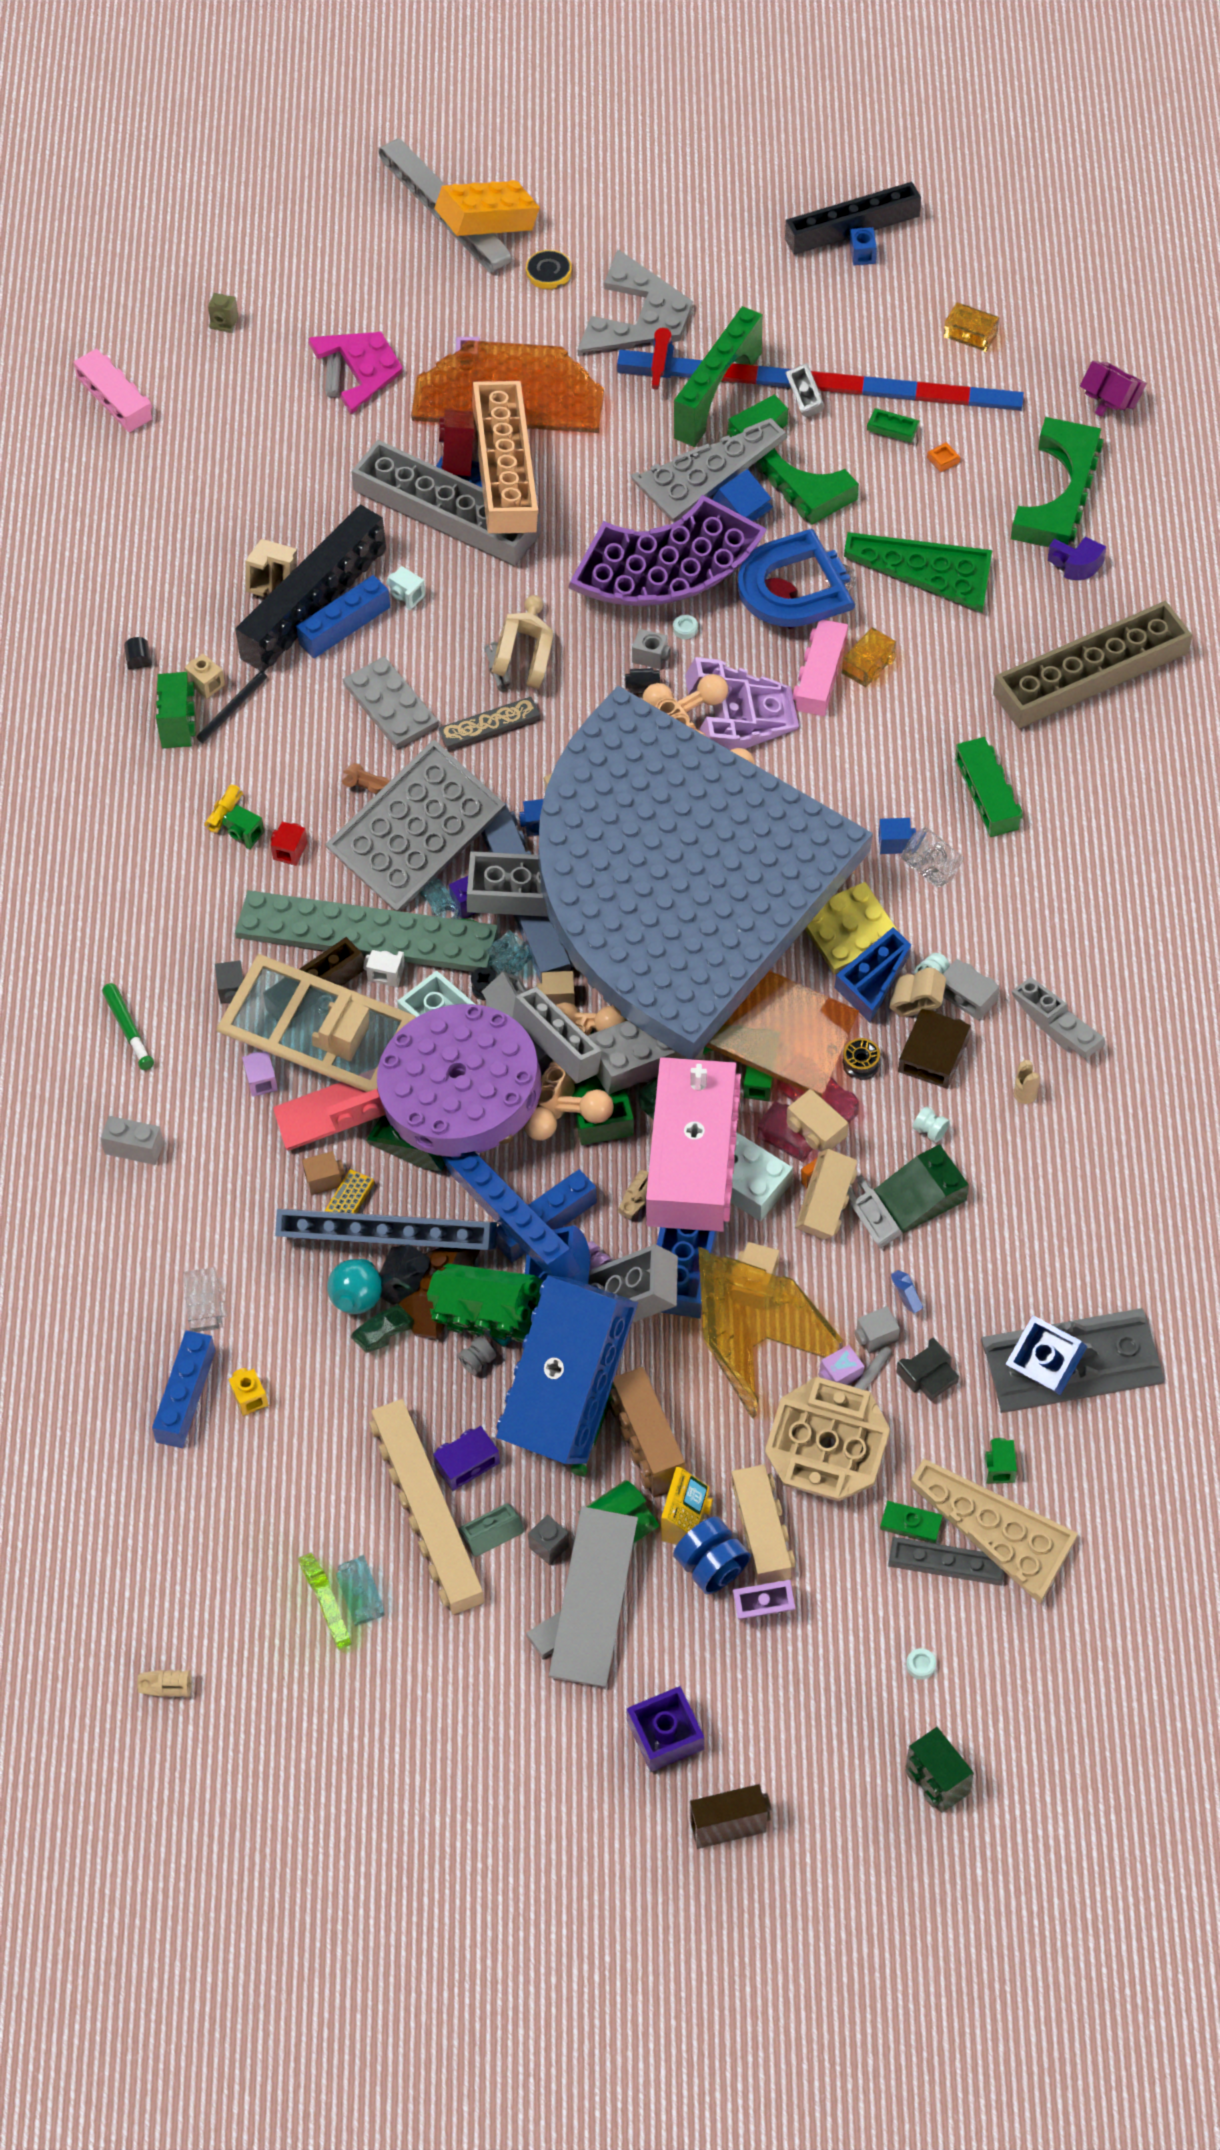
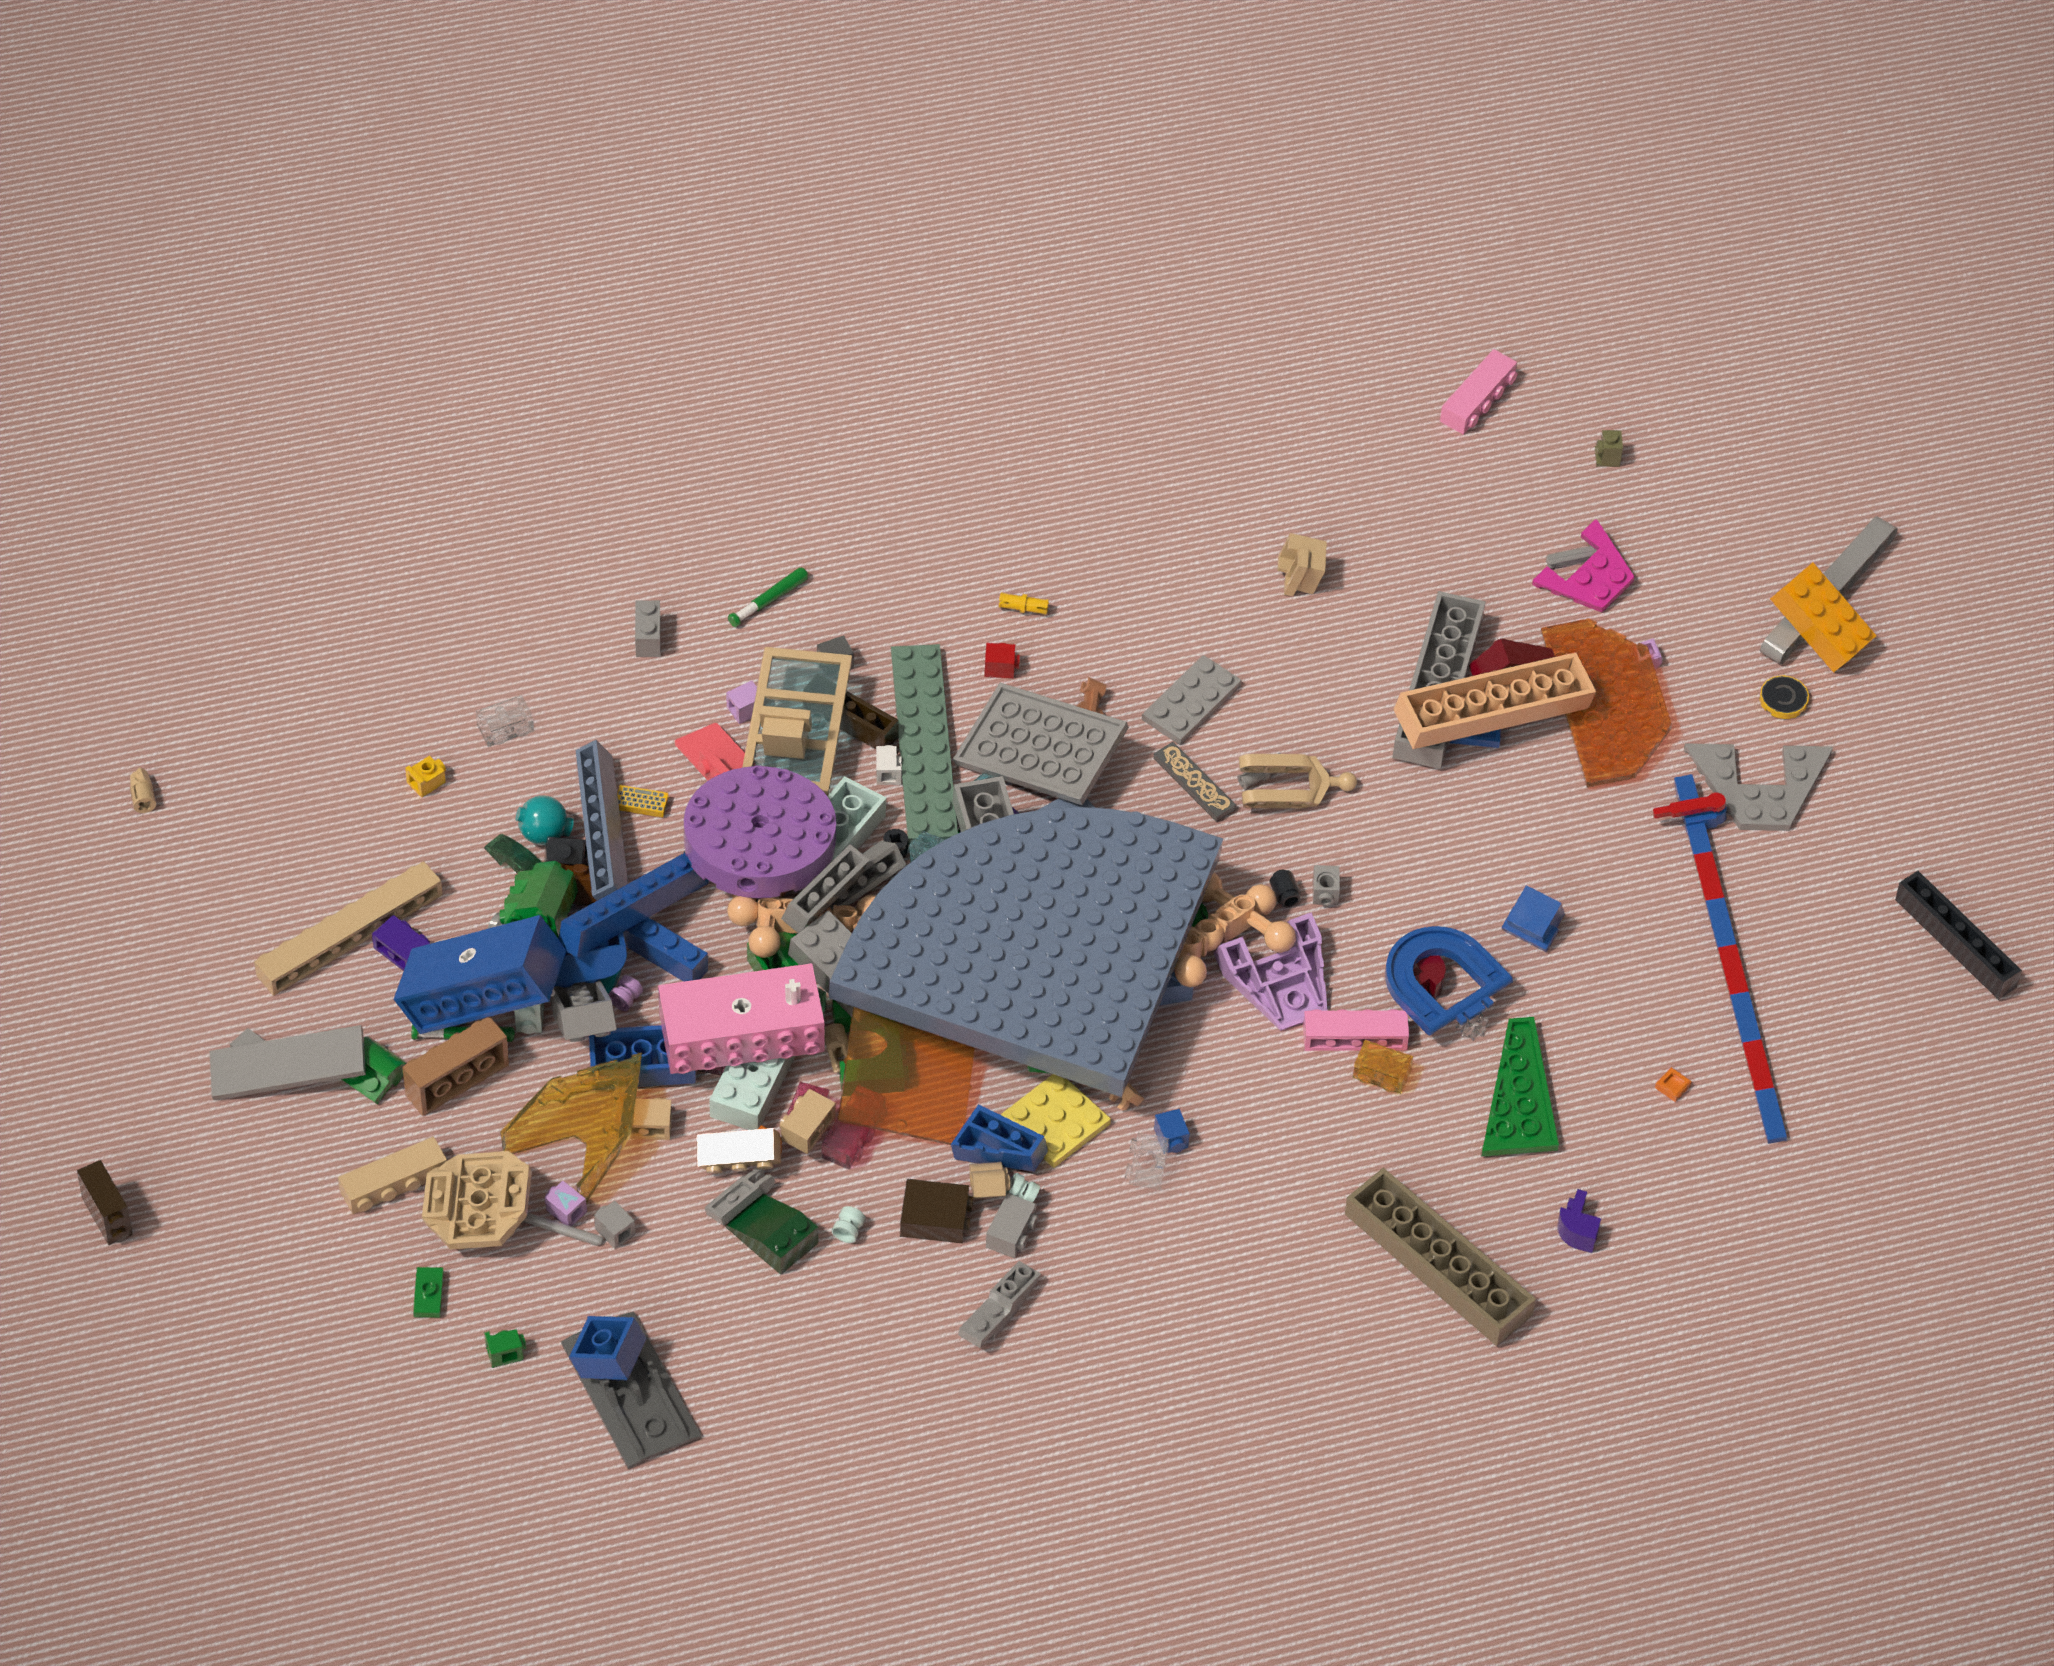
camera: 70 degrees right, 5 degrees down
(137, 653) = (1177, 495): black brick -> none
(175, 710) = (1117, 536): green wedge -> none
(184, 1389) = (413, 729): blue brick -> none
(206, 675) = (1166, 549): tan brick -> none
(219, 719) = (1143, 581): black bar -> none
(244, 825) = (1006, 623): green brick -> none
(310, 587) = (1291, 599): black brick -> none
(320, 1585) = (237, 861): clear neon green beam -> none
(323, 1172) = (656, 772): medium nougat brick -> none
(343, 616) = (1273, 635): blue brick -> none
(360, 1591) = (259, 904): clear light blue hinge -> none
(406, 587) = (1327, 676): light aqua brick -> none
(491, 1529) = (341, 983): sand green slope -> none
(548, 1539) = (336, 1016): dark grey brick -> none
(665, 1728) = (177, 1142): dark purple brick -> none
(666, 560) = (1418, 866): medium lavender brick -> none
(685, 627) = (1369, 911): light aqua tile -> none
(685, 1506) = (388, 1109): yellow slope -> none
(706, 469) = (1564, 877): light grey wing -> none
(711, 1555) = (347, 1138): blue wheel -> none
(738, 343) = (1732, 860): green arch -> none
(764, 1599) = (316, 1189): lavender brick -> none
(805, 390) = (1703, 941): light grey brick -> none
(810, 493) = (1632, 914): green arch -> none
(861, 1049) = (902, 1147): black wheel -> none
(863, 246) = (1928, 954): blue brick -> none
(893, 425) = (1694, 1030): green plate -> none
(906, 1291) = (660, 1237): slope -> none
(921, 1664) = (291, 1327): light aqua tile -> none
(928, 1370) = (584, 1273): pearl dark grey piece -> none
(938, 1770) = (182, 1348): dark green brick -> none
(944, 1561) = (397, 1328): dark grey tile -> none
(971, 326) = (1856, 1071): clear yellow brick -> none
(988, 786) = (1258, 1197): green brick -> none
(1012, 1536) = (432, 1366): tan wing -> none
(1026, 1083) = (915, 1290): tan hinge -> none
(1076, 449) = (1622, 1197): green arch -> none
(1112, 386) = (1816, 1206): magenta brick -> none

